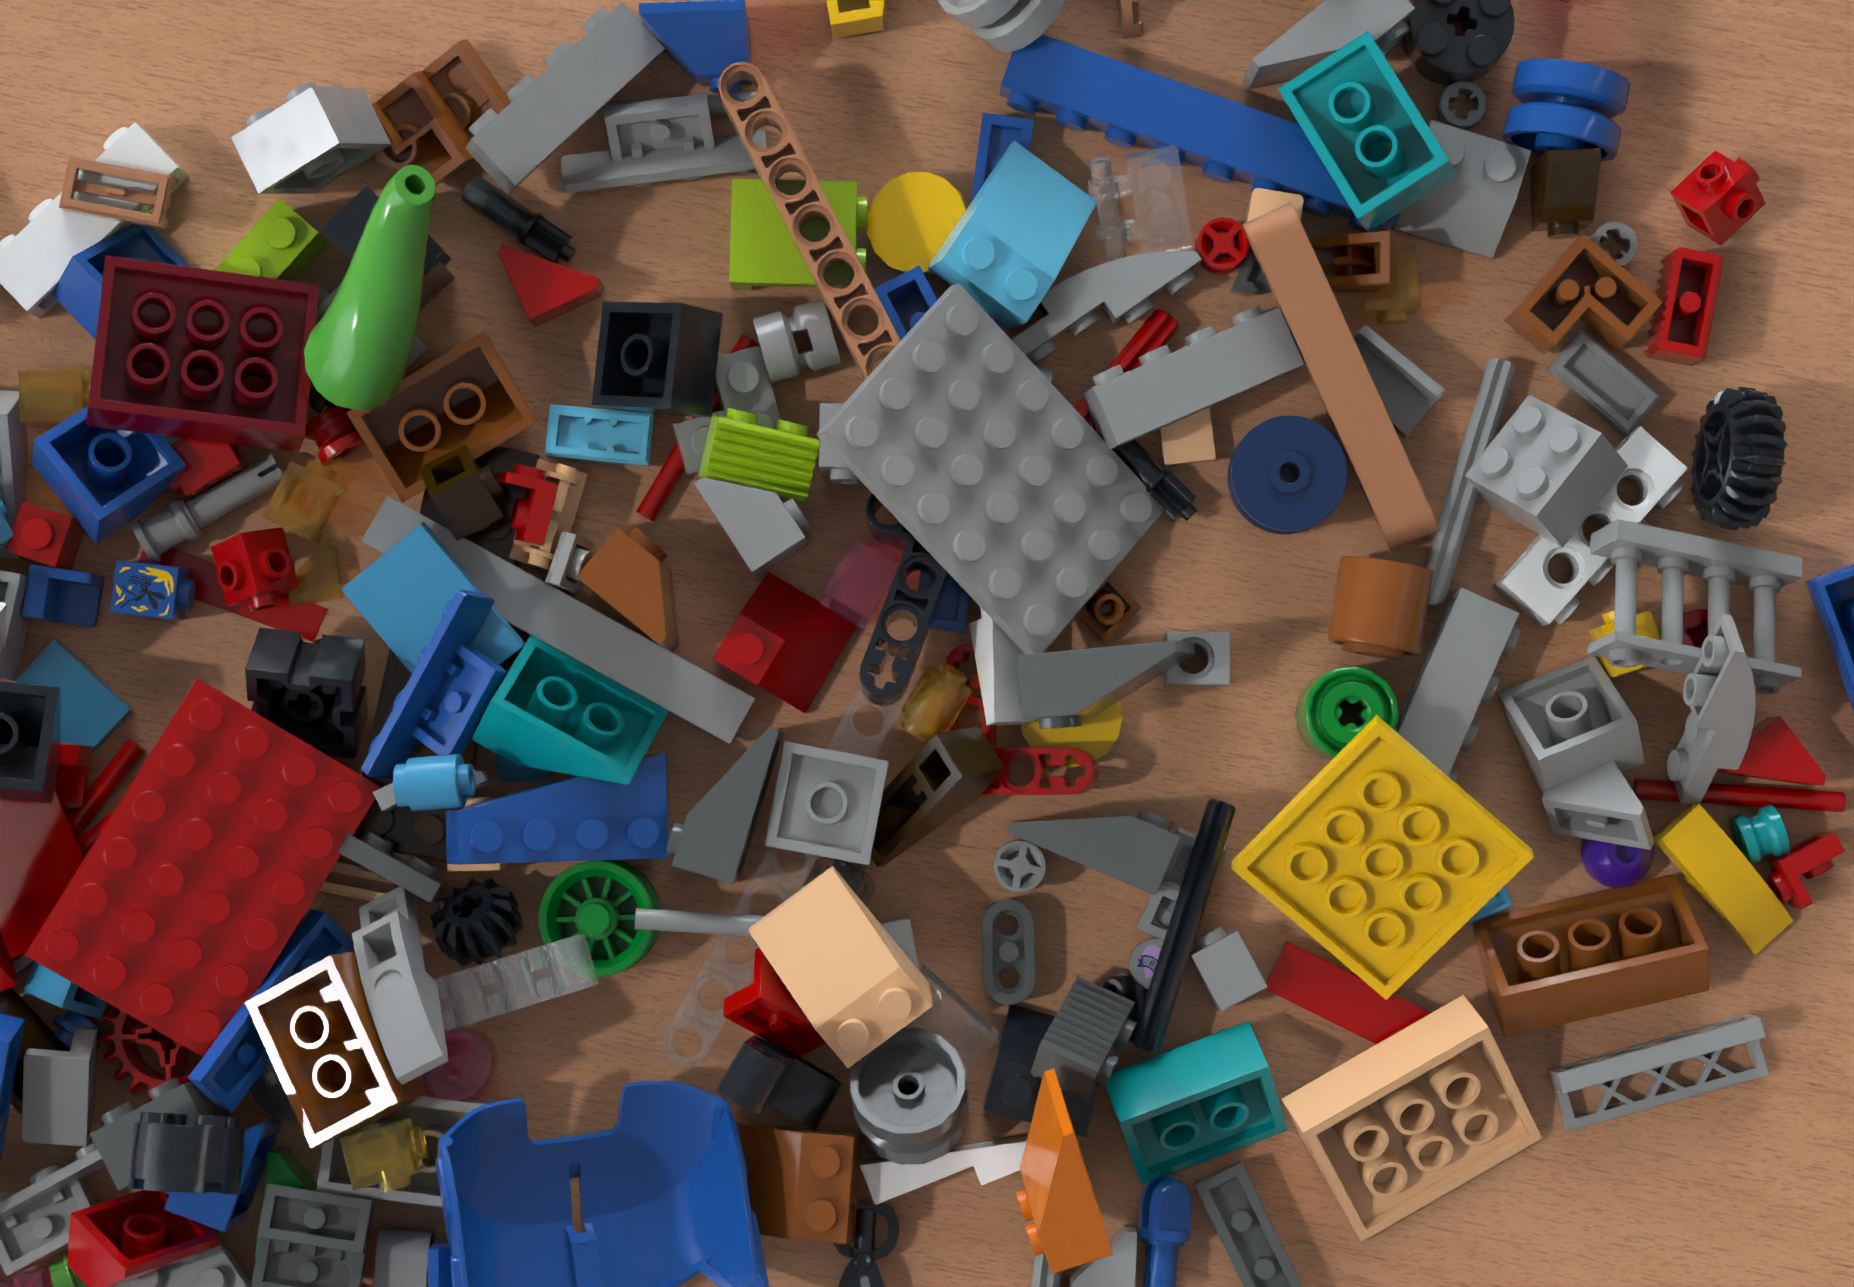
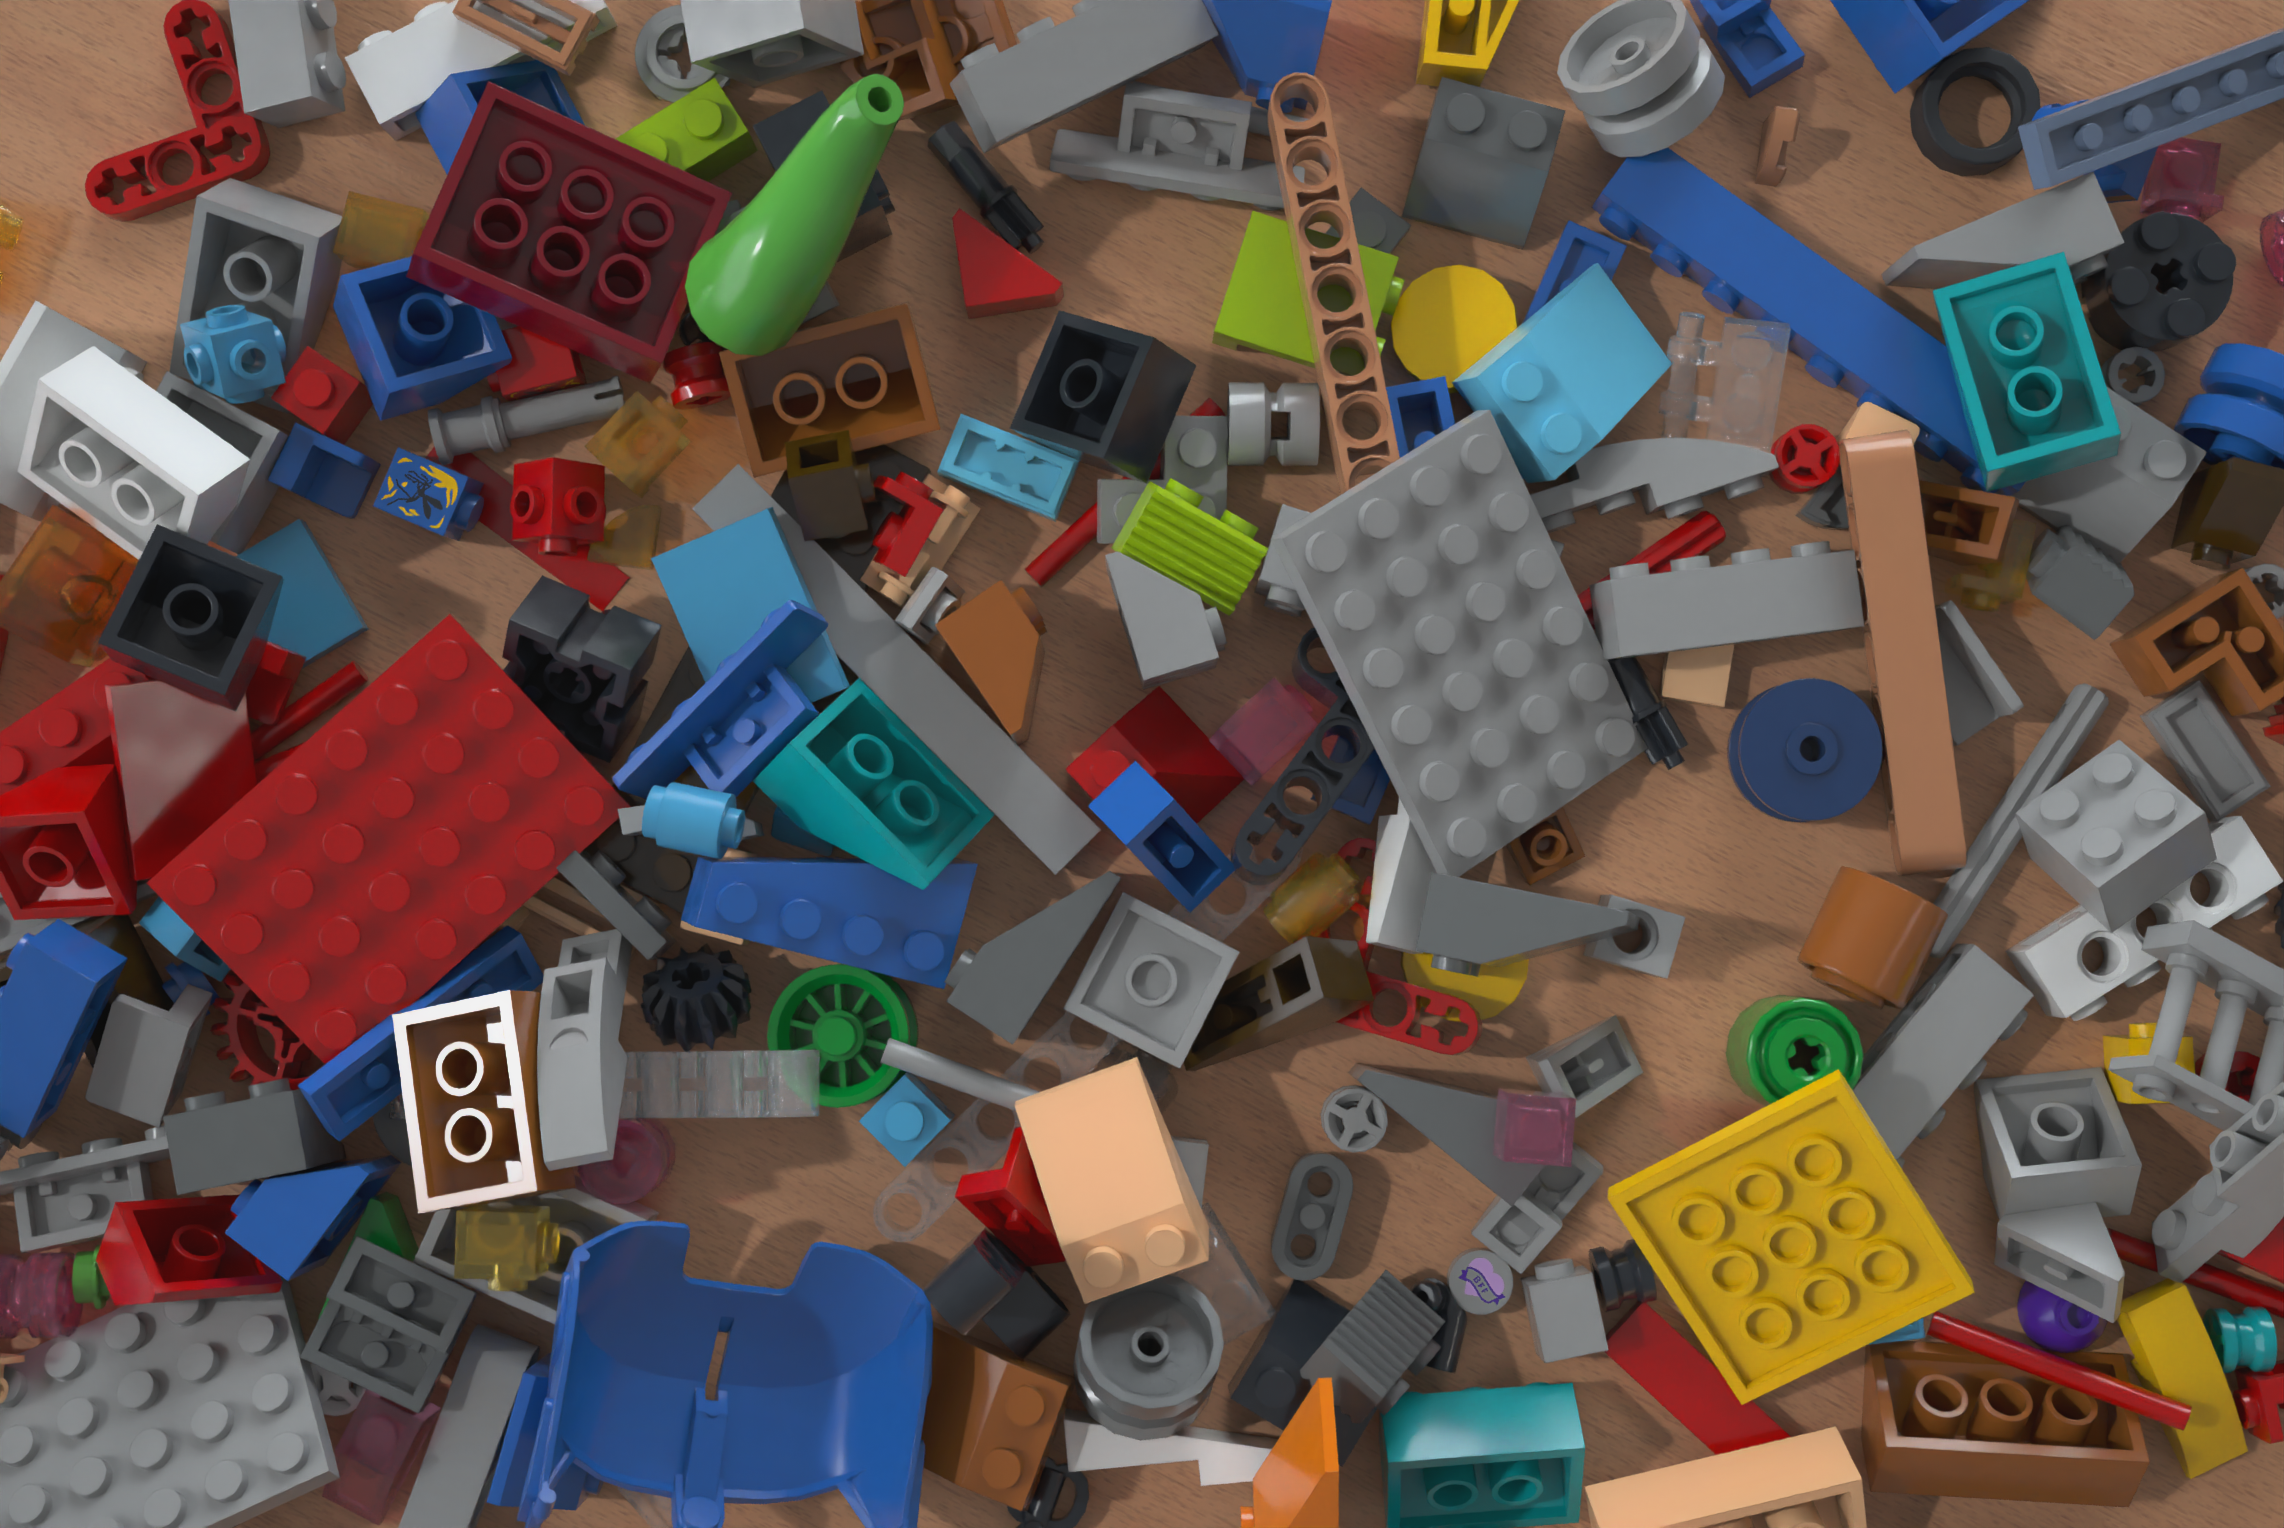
camera: 10 degrees right, 0 degrees up
(187, 1157) = (266, 1182): black brick -> none
(237, 206) = (658, 39): none -> light grey gear
(669, 968) = (907, 1118): none -> dark azure brick
(803, 689) = (1162, 836): none -> blue brick
(831, 160) = (1375, 223): none -> dark grey plate
(902, 87) = (1483, 163): none -> dark grey slope
(1152, 828) = (1534, 1127): none -> clear pink brick
(1183, 925) = (1529, 1248): black axle -> none
(1189, 772) = (1587, 1064): none -> light grey slope
(1264, 927) = (1622, 1275): none -> black wheel
(1458, 279) = (2078, 580): none -> dark grey brick
(1623, 900) = (2059, 1370): none -> red bar

